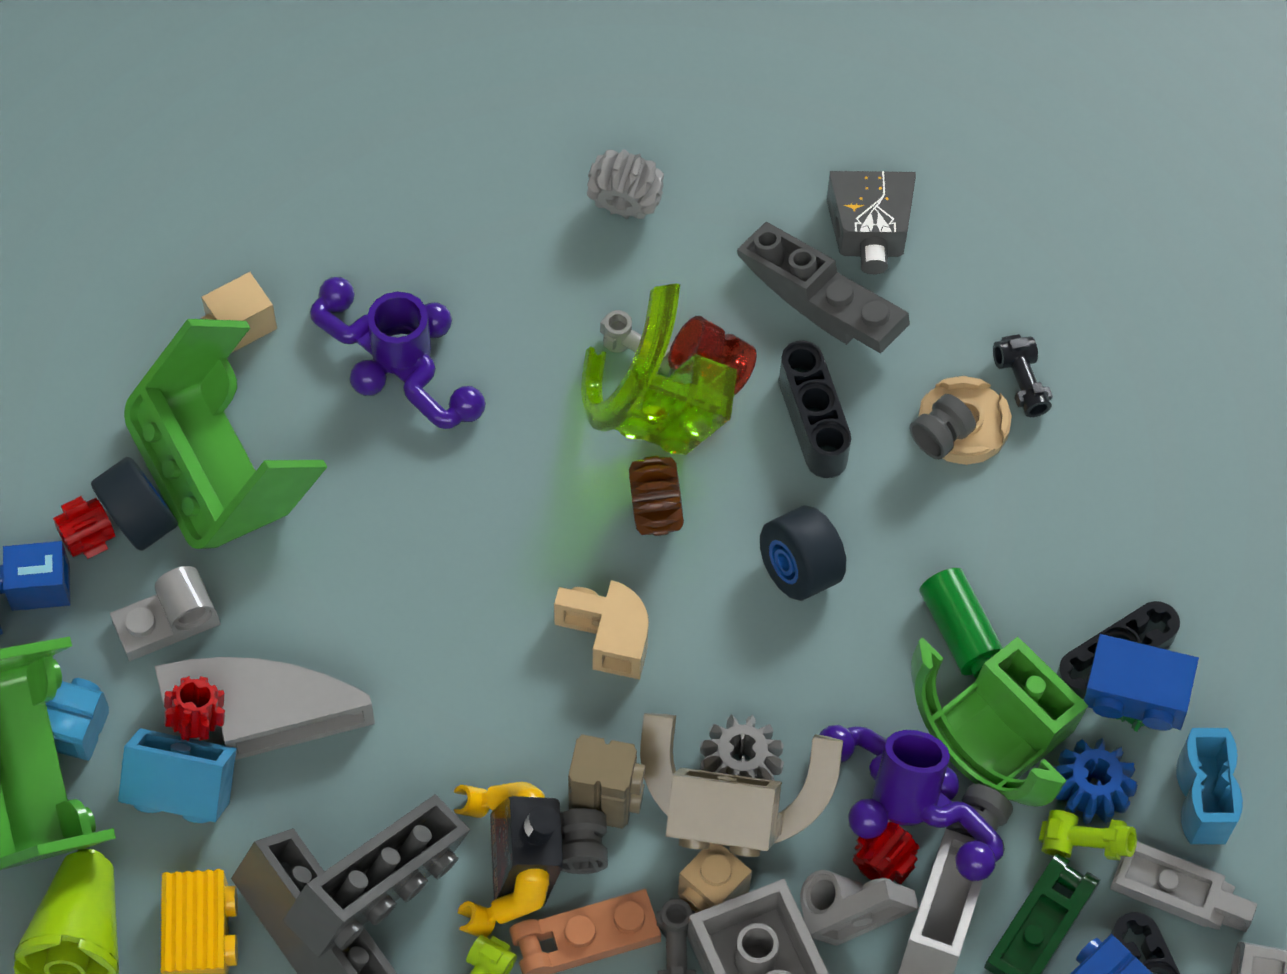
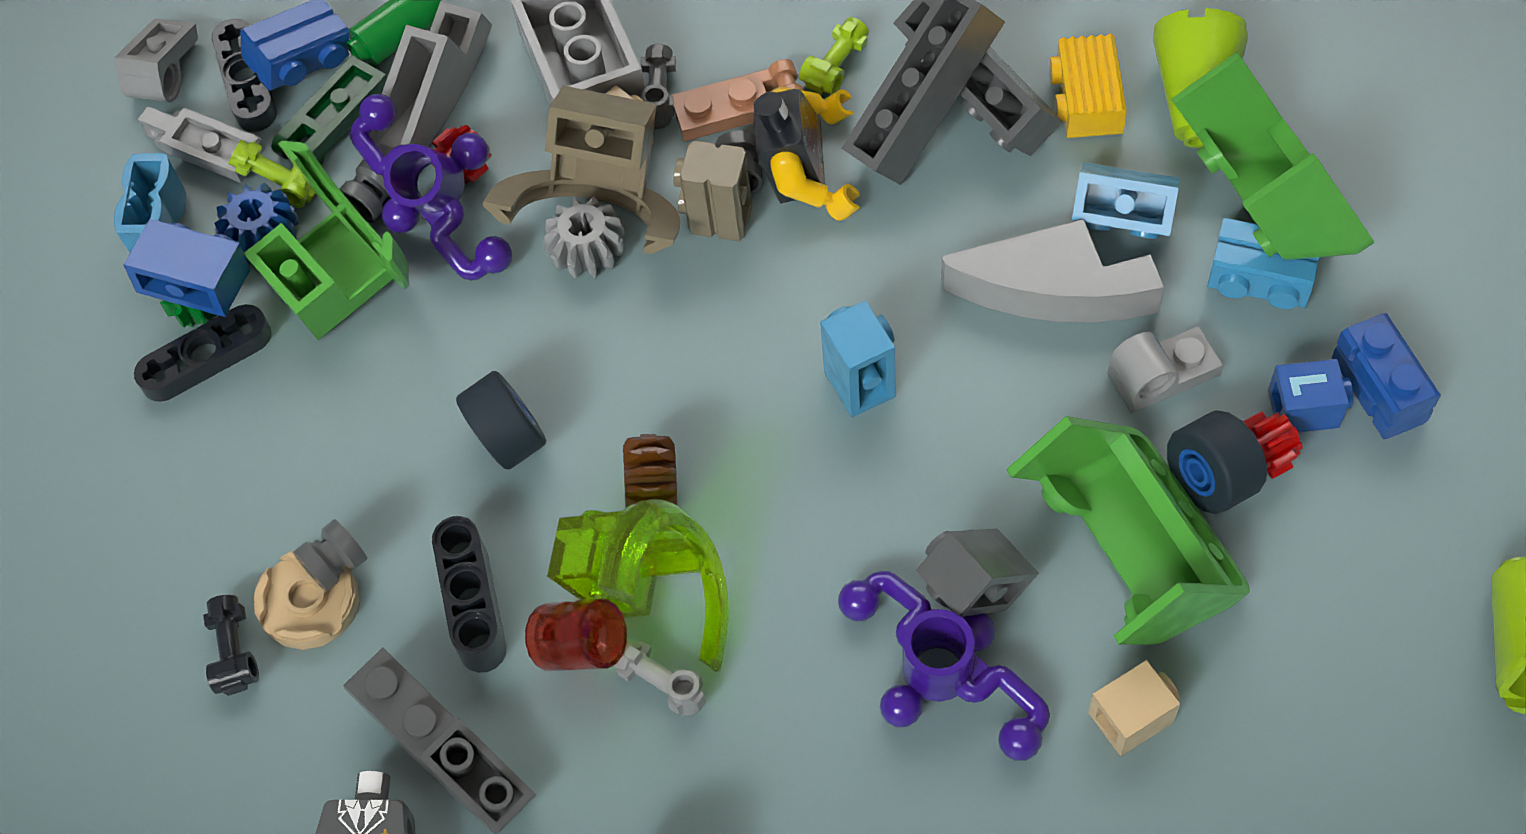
camera: 170 degrees left, 0 degrees up
(194, 708) = (1122, 220): red gear -> none
(360, 398) = (975, 571): none -> dark grey brick
(458, 597) = (859, 357): none -> dark azure brick
(616, 620) = (700, 361): tan brick -> none
(844, 908) = (505, 100): light grey plate -> none
(960, 620) = (350, 366): green brick -> none

